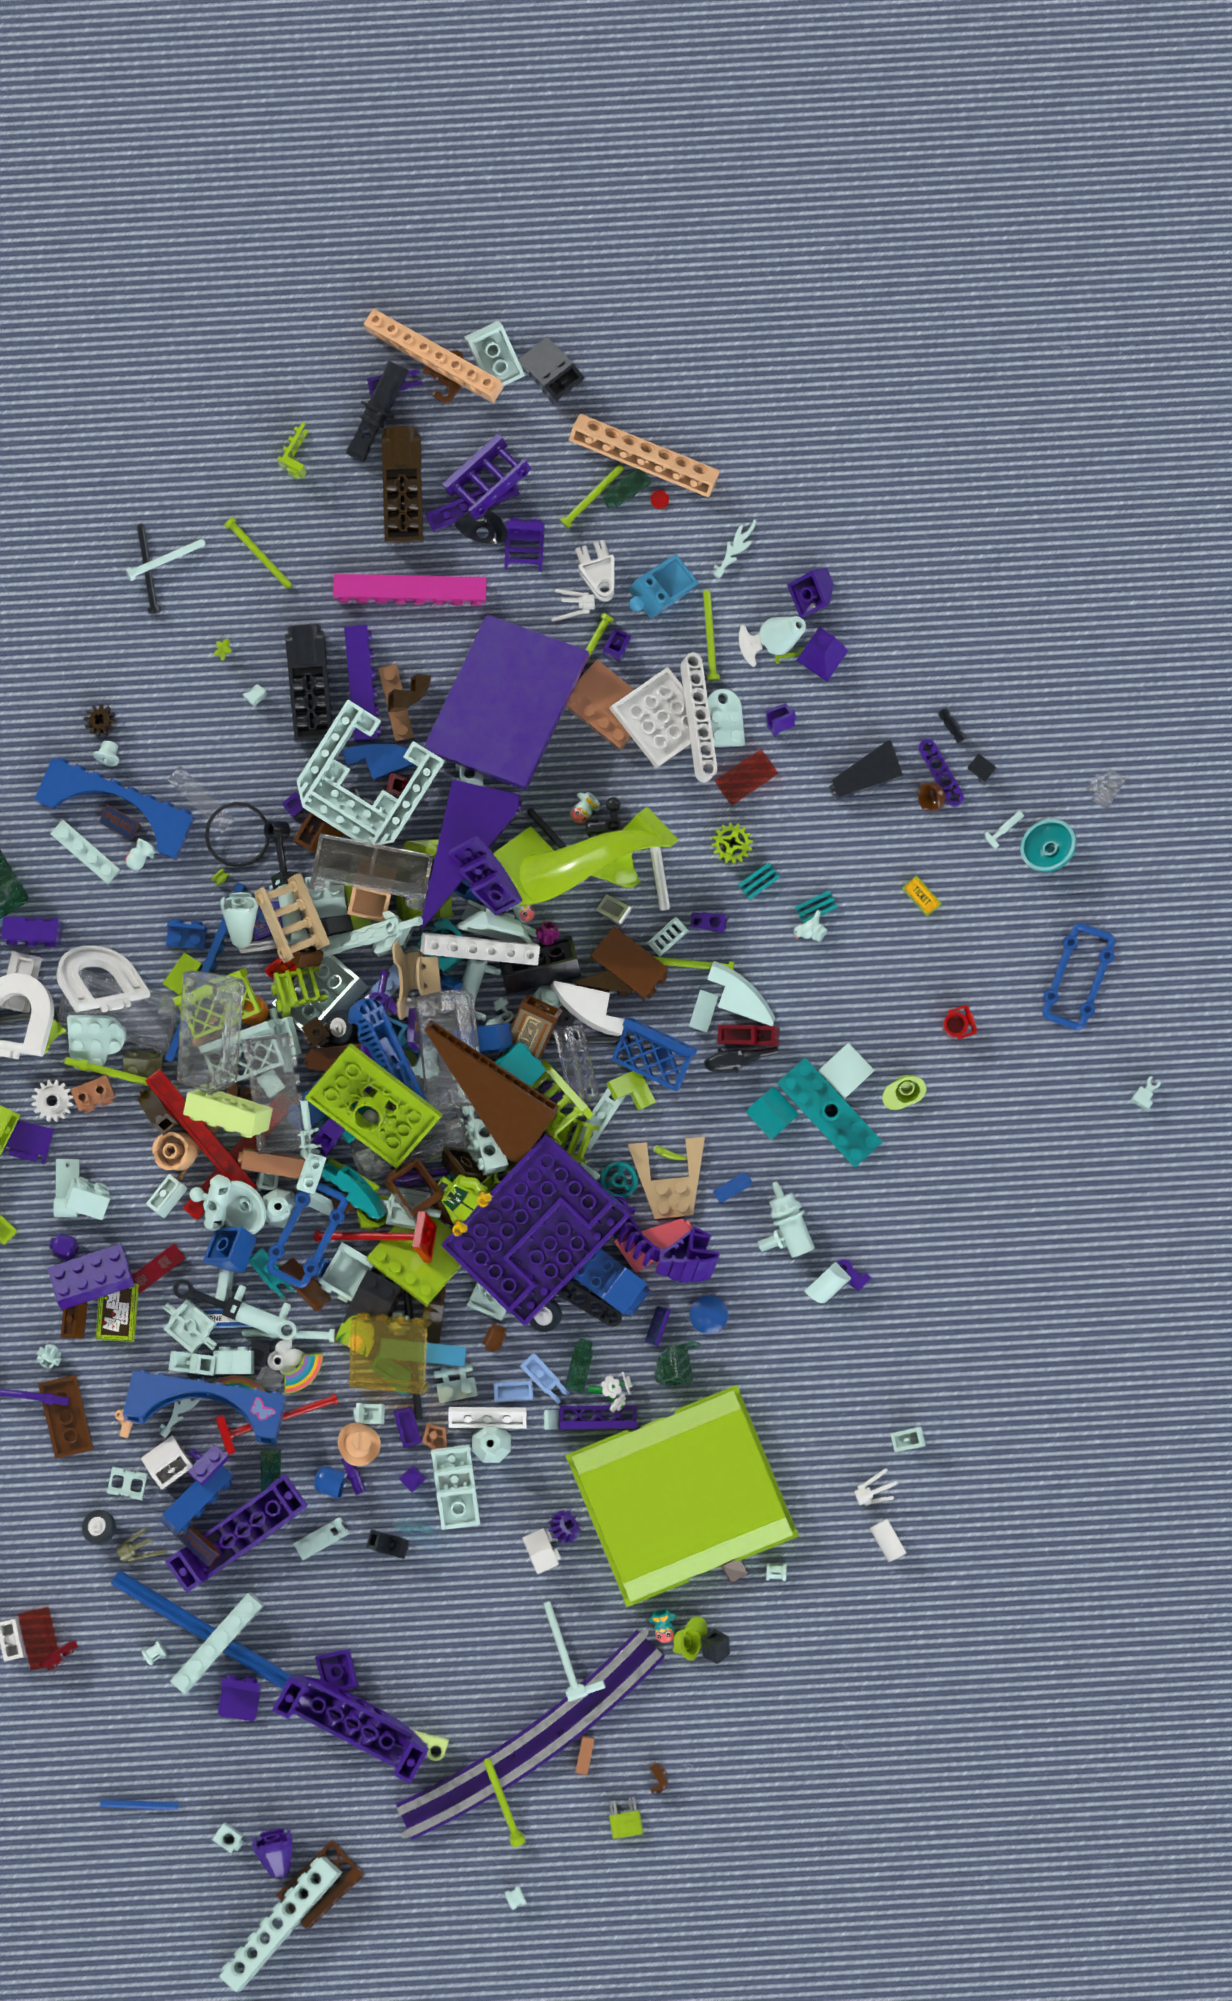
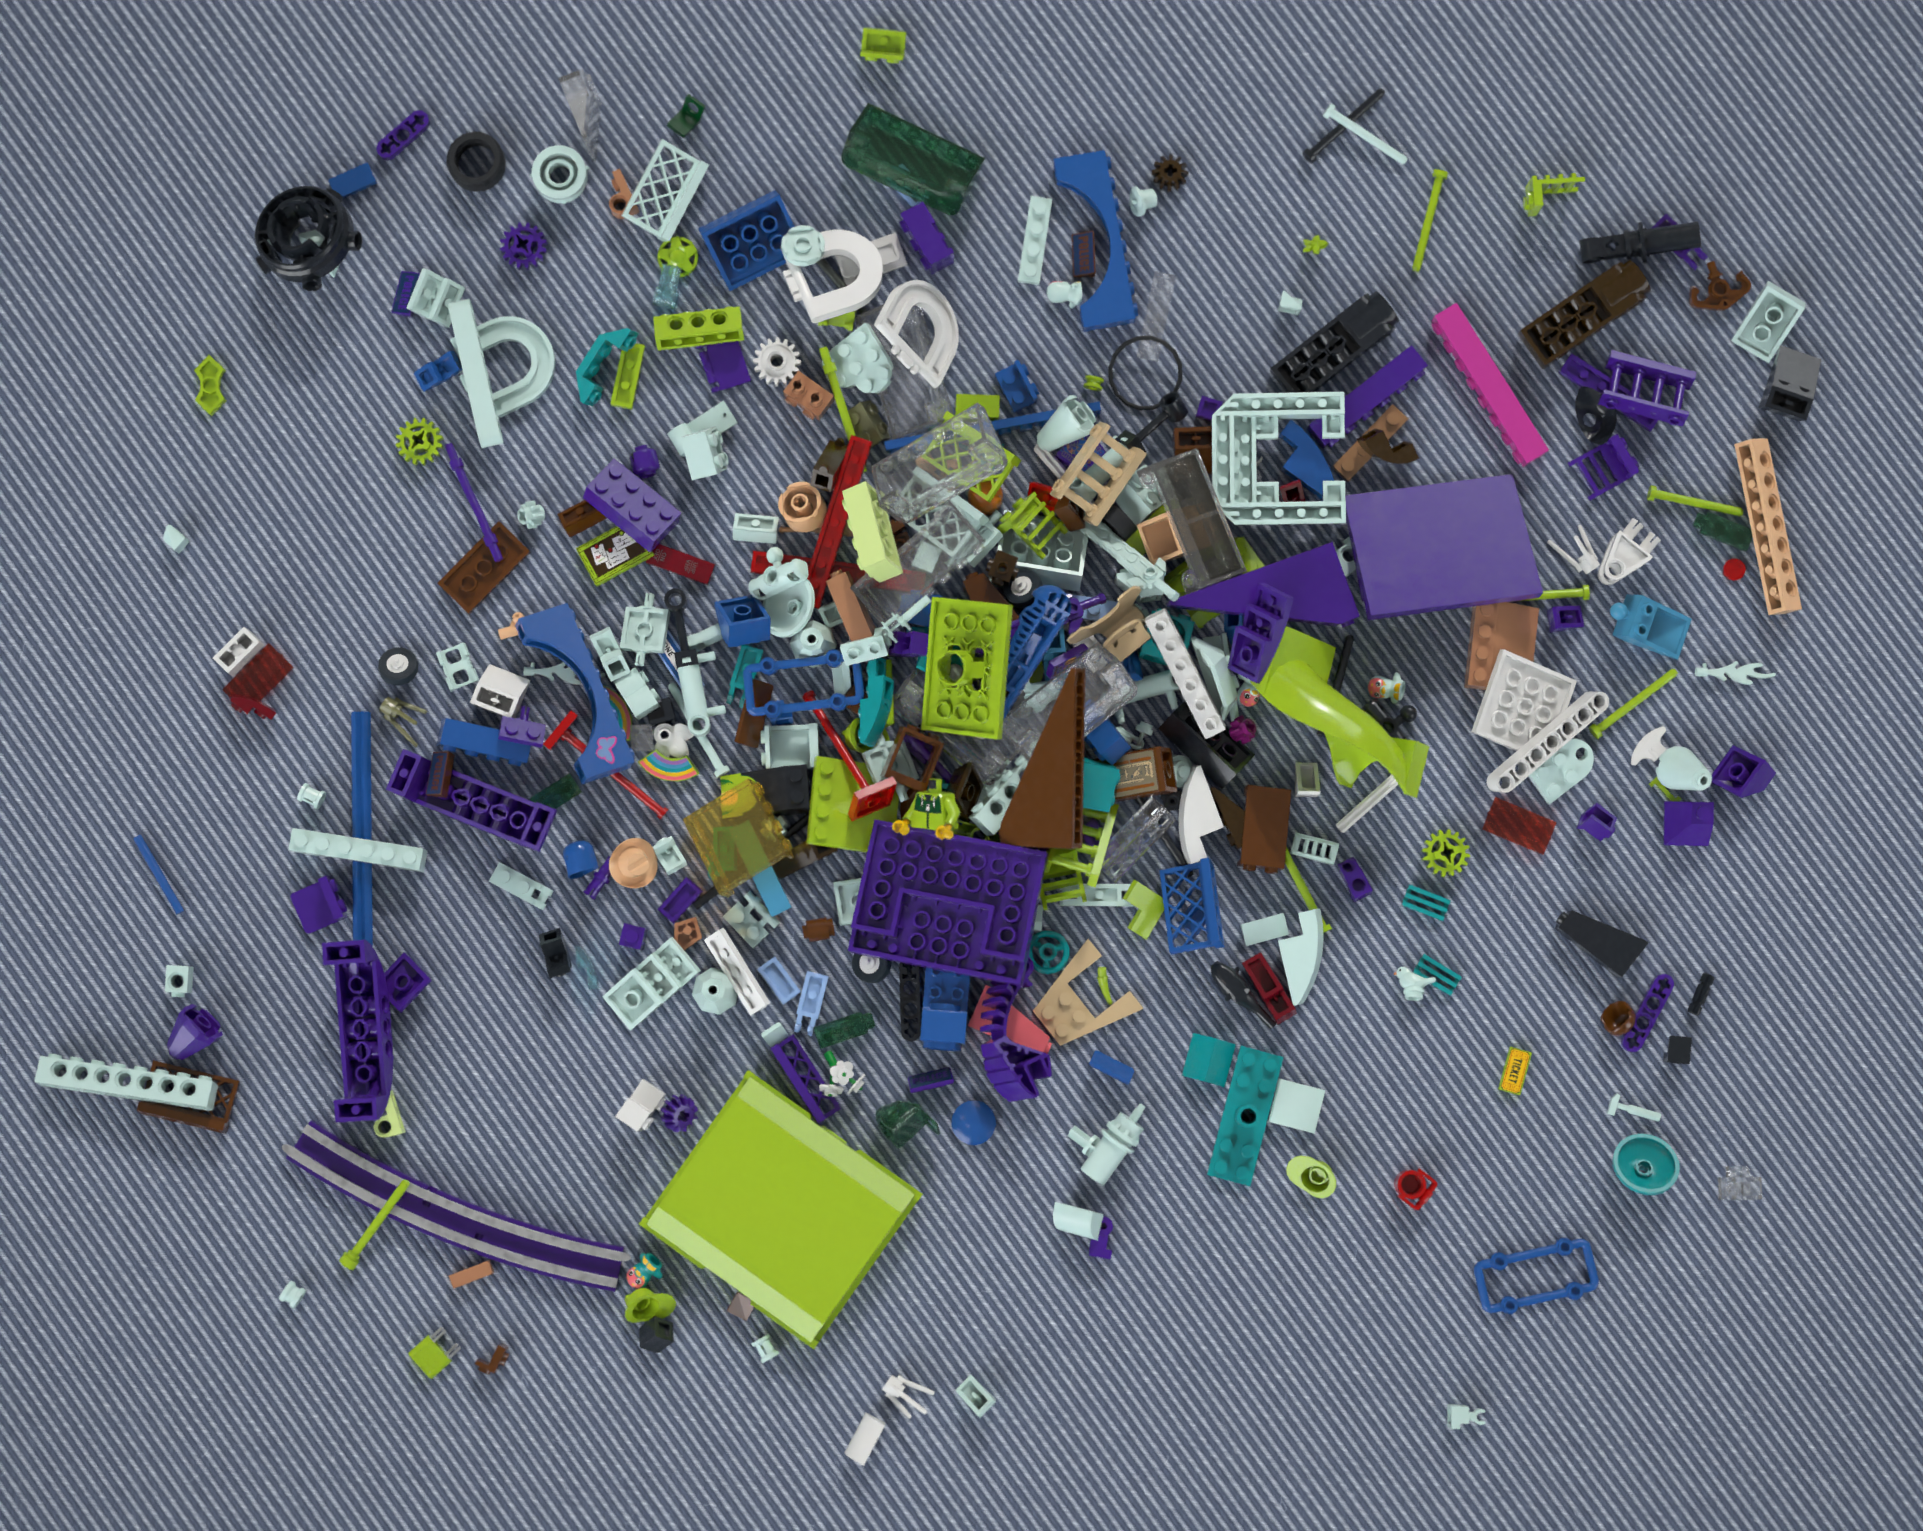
camera: 55 degrees right, 0 degrees up
(433, 355) = (1730, 262): light nougat brick -> none
(575, 1690) = (527, 1225): light aqua bar -> none

